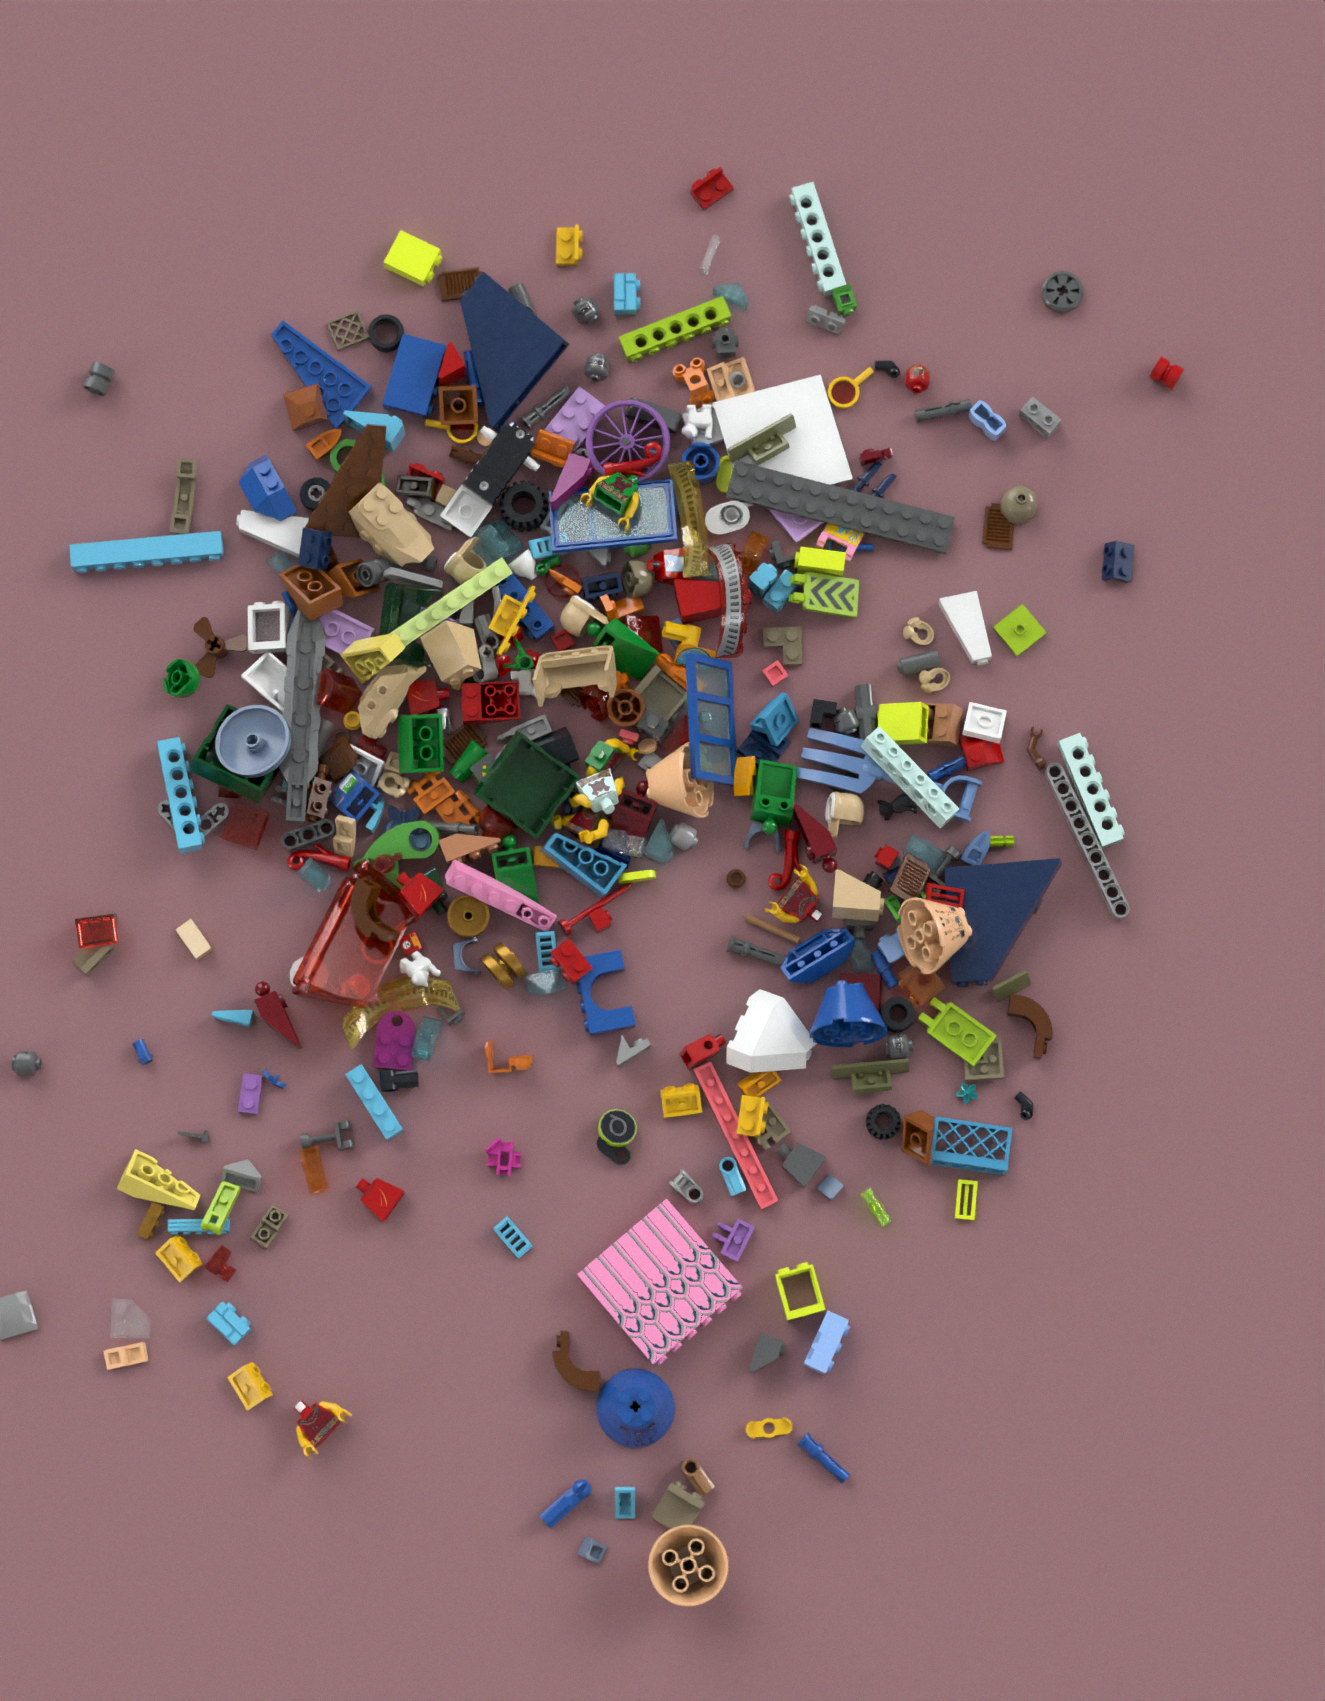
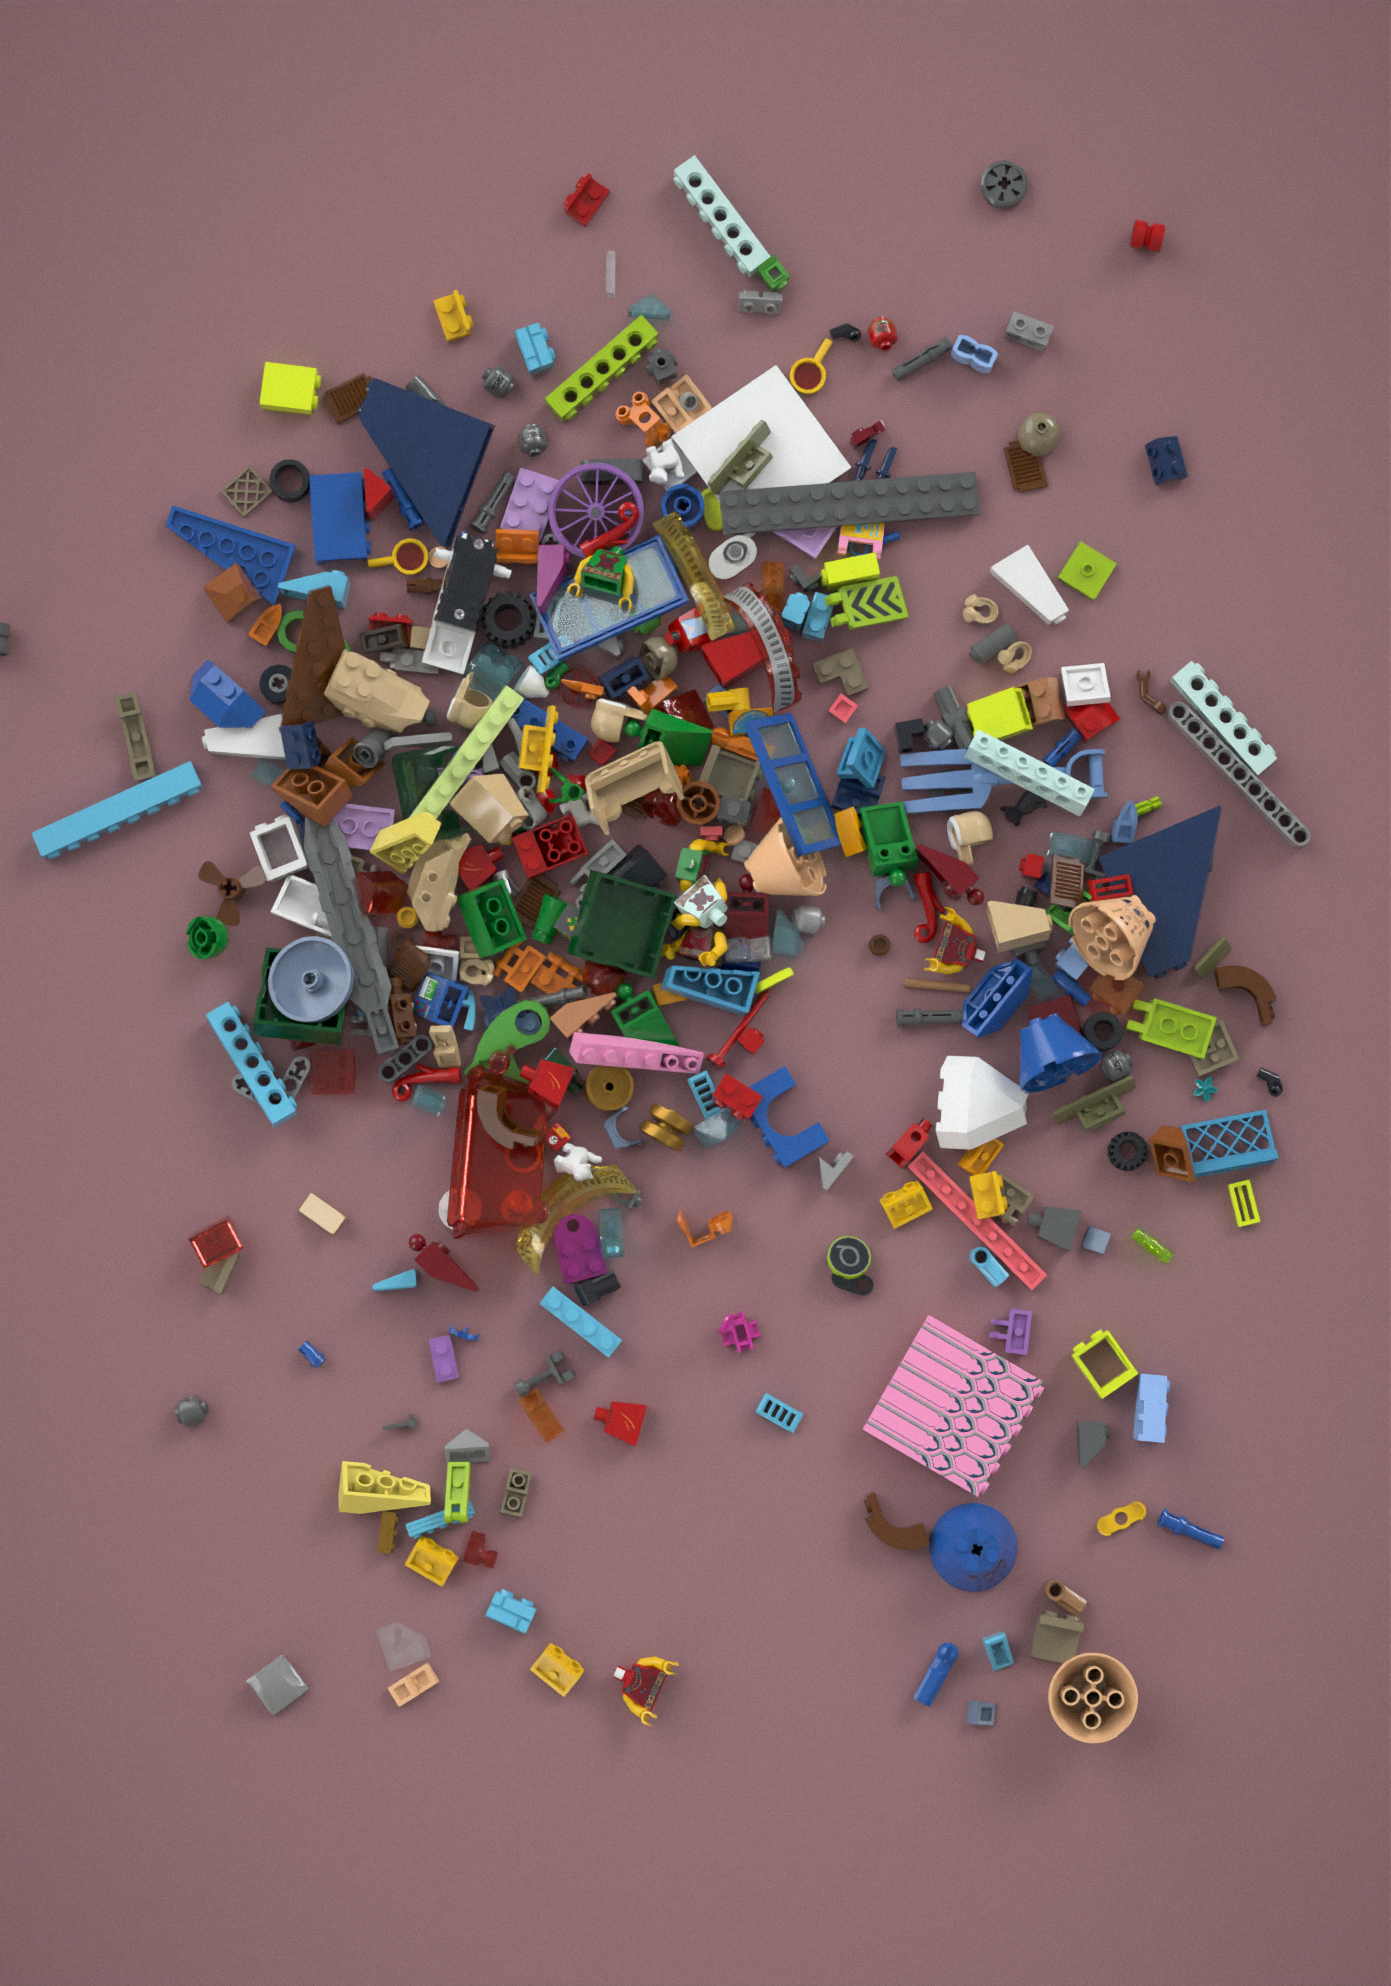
camera: 25 degrees left, 5 degrees up
(458, 404) = (398, 533): dark orange slope -> none
(685, 1185) = (943, 1294): light grey piece -> none

